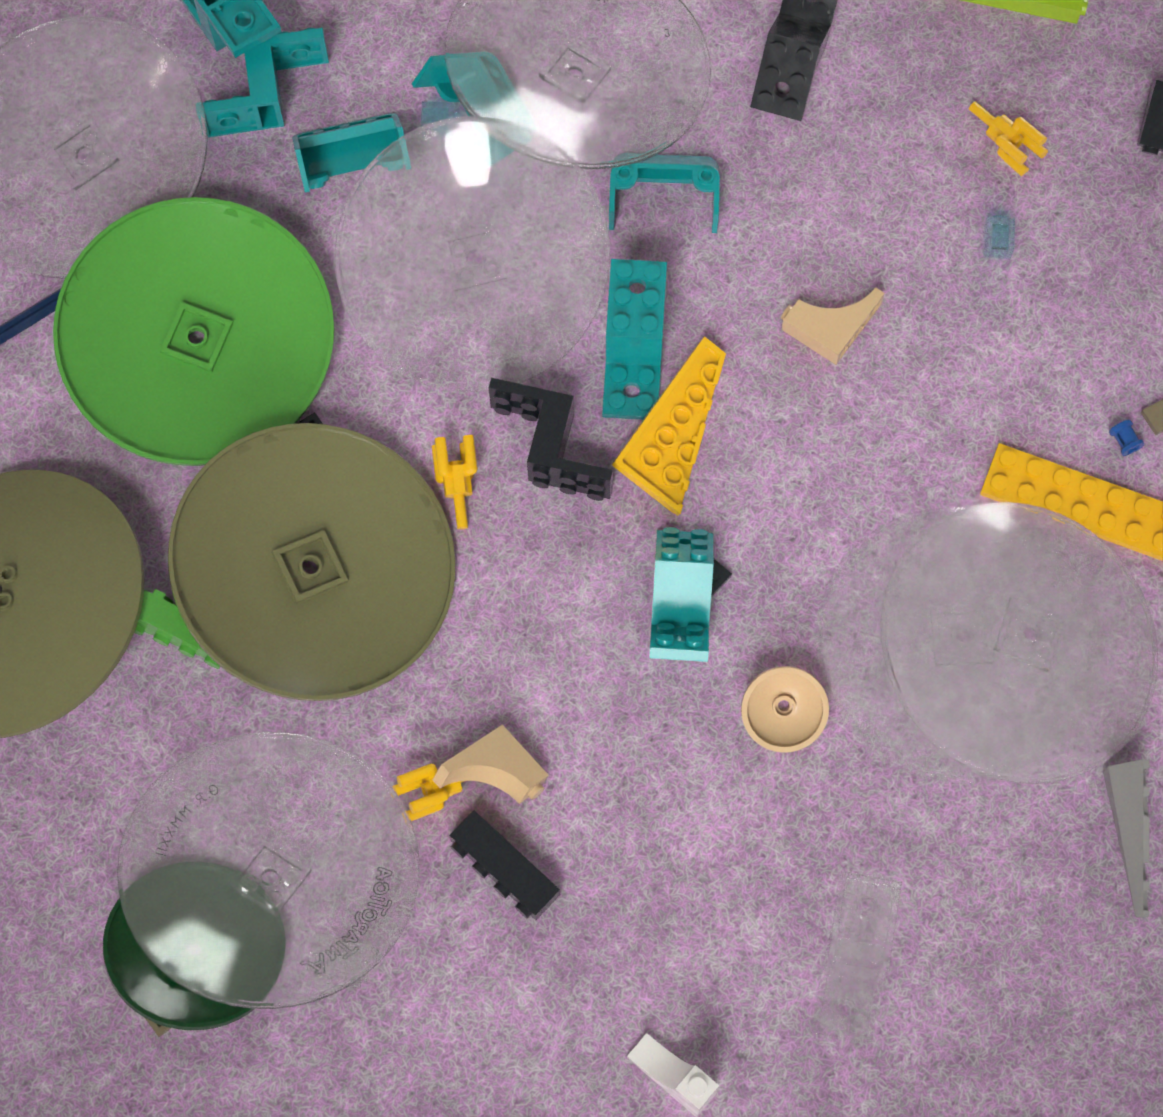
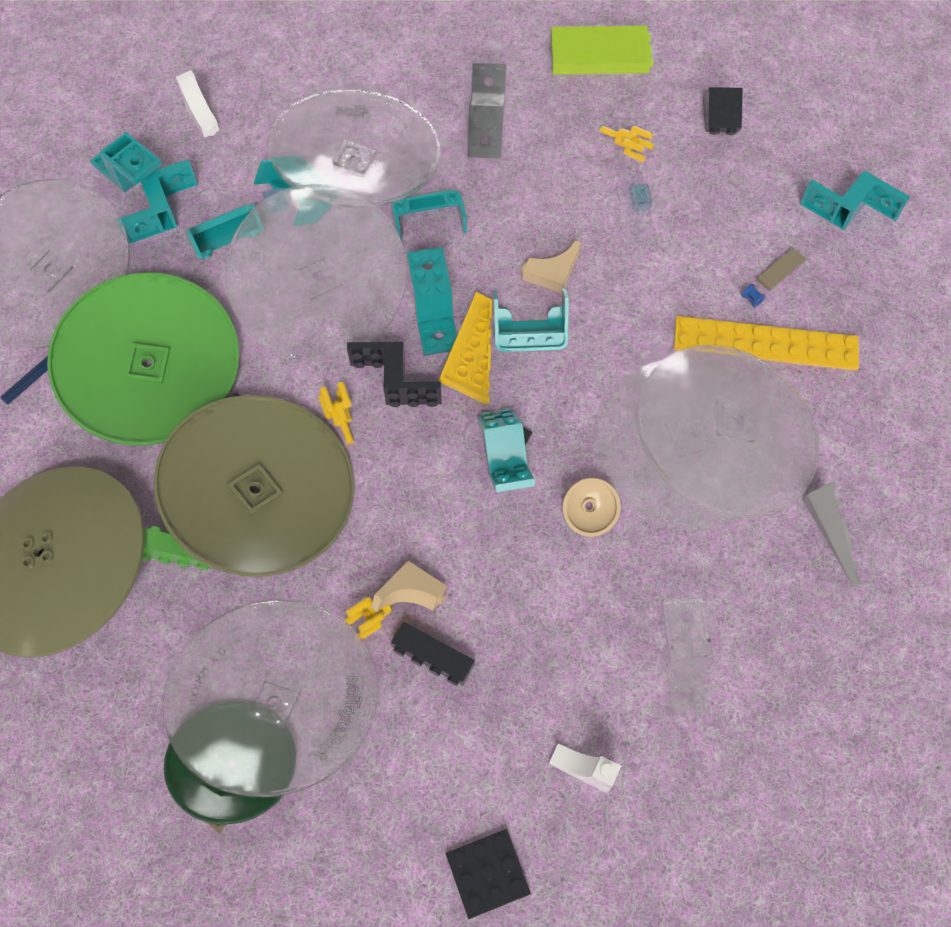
camera: 15 degrees left, 5 degrees down
(771, 420) = (531, 334): none -> windscreen

